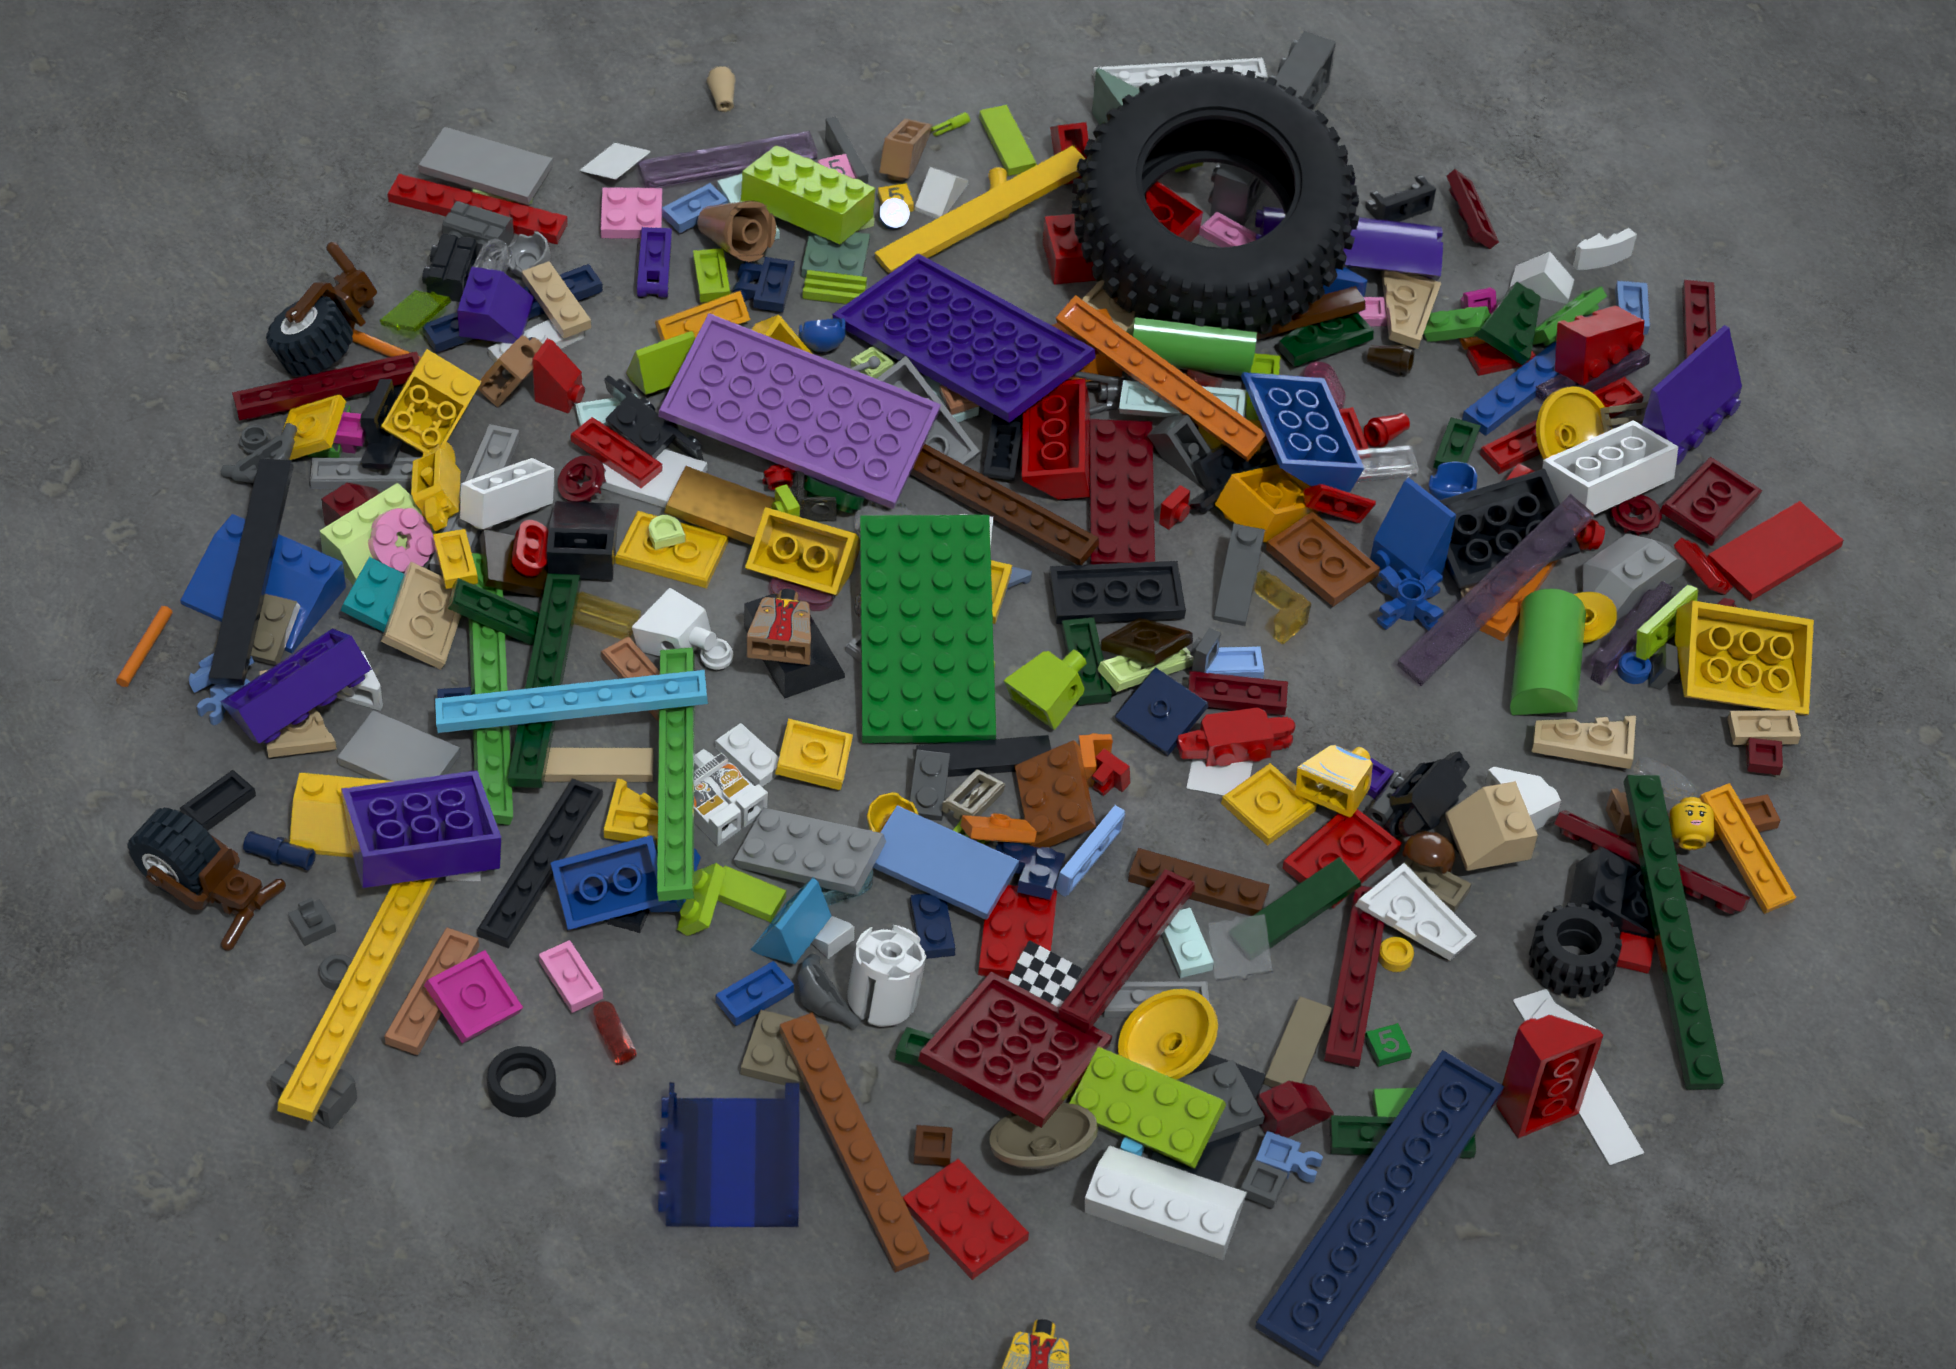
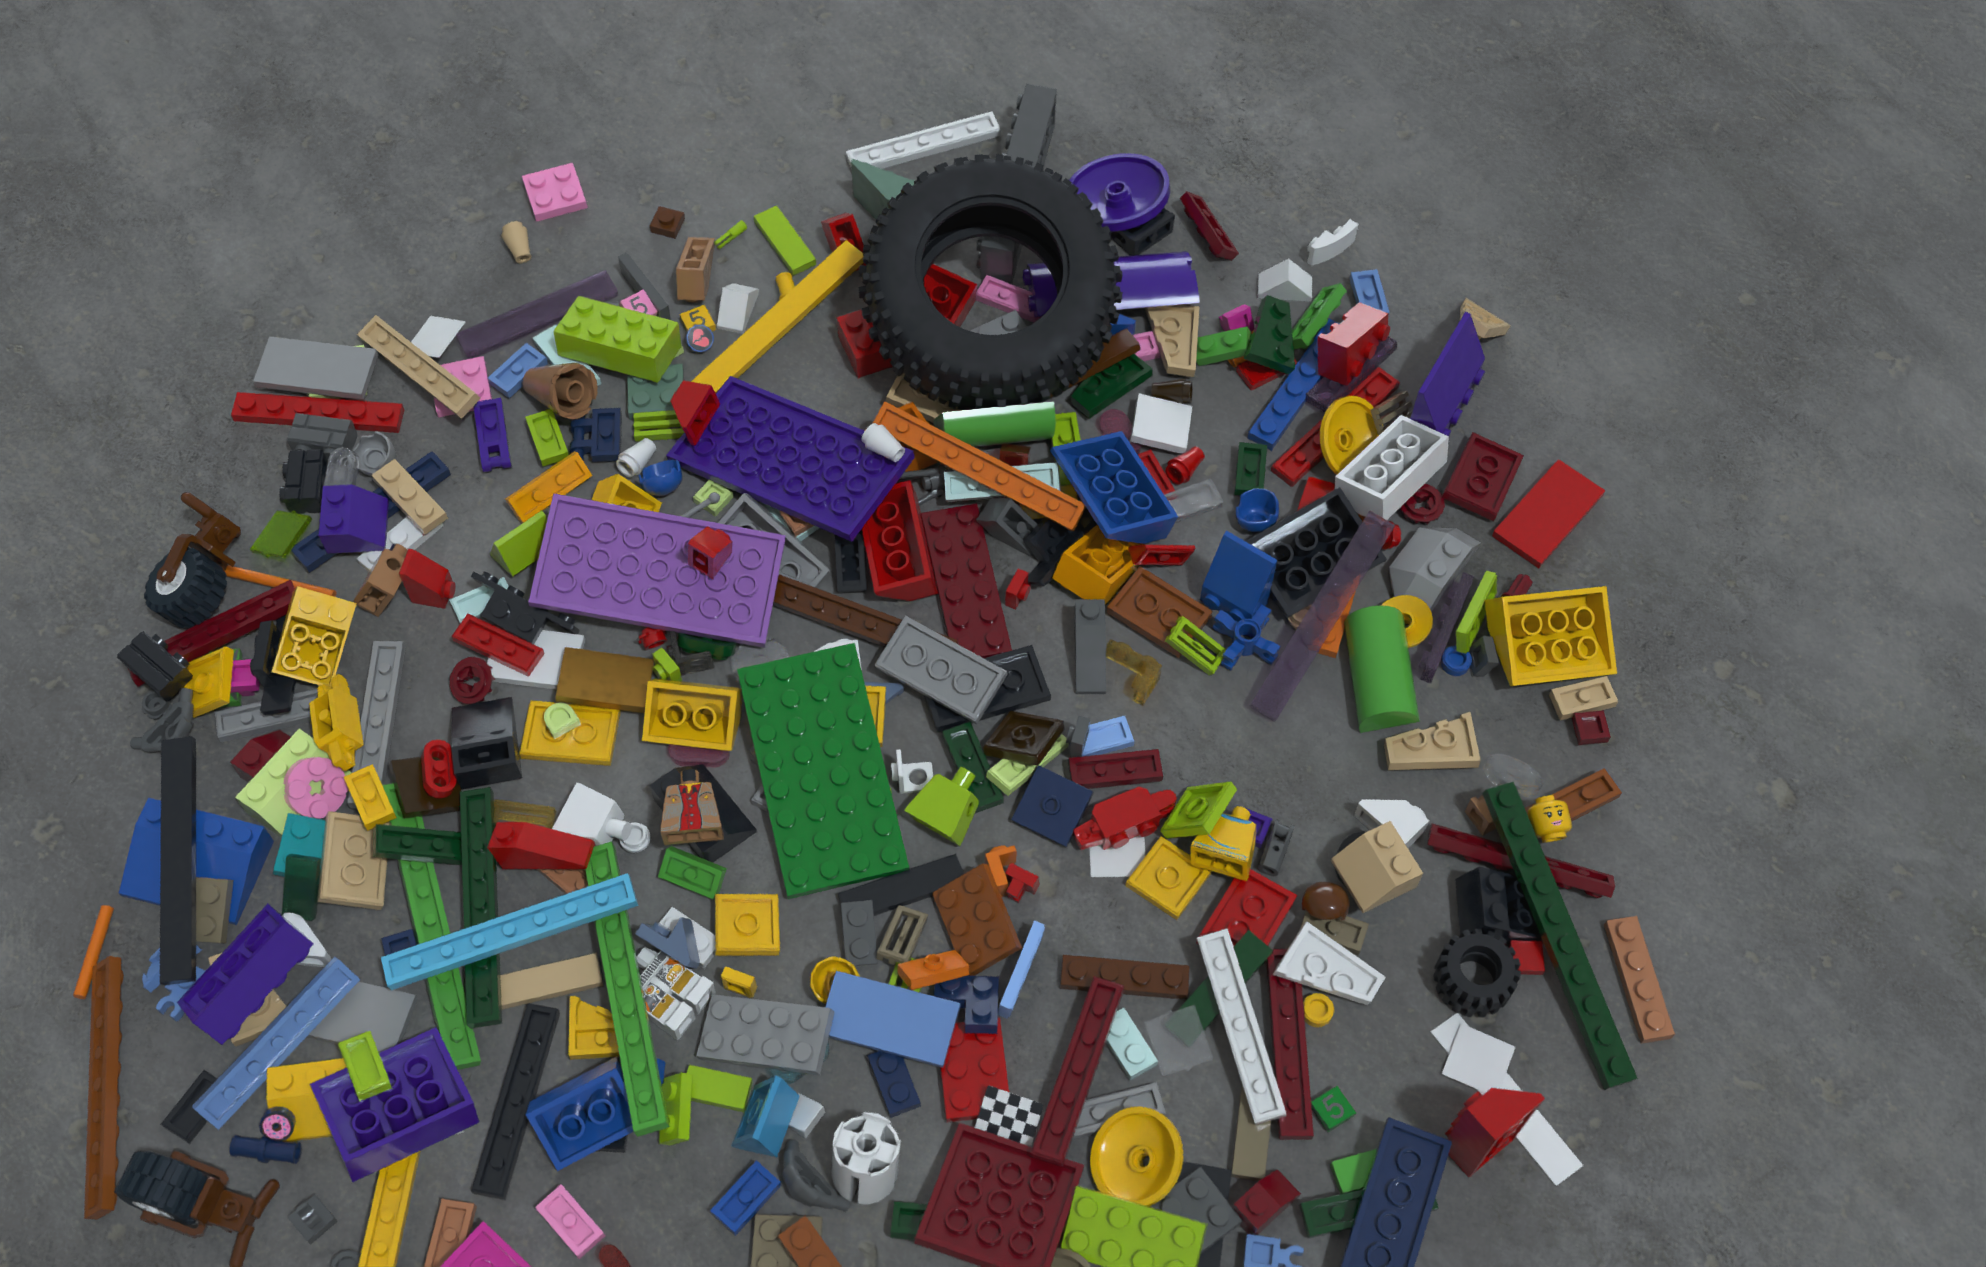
camera: 10 degrees left, 10 degrees up
(130, 764) = (103, 1089): none -> dark orange plate
(264, 398) = (155, 666): none -> black brick
(298, 826) = (277, 1124): none -> tile
(312, 755) = (275, 1043): none -> medium blue plate
(369, 622) = (301, 886): none -> clear green tile
(399, 783) = (364, 1065): none -> lime tile
(506, 493) = (404, 716): white brick -> none
(593, 182) = (419, 366): none -> tan plate
(612, 636) = (537, 847): none -> red slope
(739, 749) = (679, 945): none -> sand blue slope
(768, 695) = (692, 872): none -> bright green plate
(772, 50) = (554, 192): none -> bright pink plate
(792, 800) = (738, 982): none -> yellow tile
(800, 310) = (634, 459): none -> white cone
(857, 397) = (709, 551): none -> red slope
(874, 272) = (694, 408): none -> red slope
(885, 100) = (667, 222): none -> reddish brown plate
(1012, 653) = (901, 773): none -> white bracket
(1062, 331) = (882, 442): none -> white cone
(1074, 561) = (941, 669): none -> light grey tile
(1309, 944) = (1241, 1027): none -> white tile
(1315, 741) = (1198, 810): none -> lime tile
(1349, 598) = (1190, 654): none -> lime tile
(1370, 385) = (1161, 423): none -> white tile
(1389, 155) = (1124, 189): none -> dark purple dish
(1426, 795) = (1308, 841): black hinge -> none
(1698, 314) = (1430, 301): dark red plate -> none
(1703, 566) = (1492, 545): red tile -> none
(1748, 849) = (1601, 829): light orange tile -> none
(1751, 997) = (1639, 979): none -> nougat plate
(1752, 355) = (1485, 323): none -> tan wing

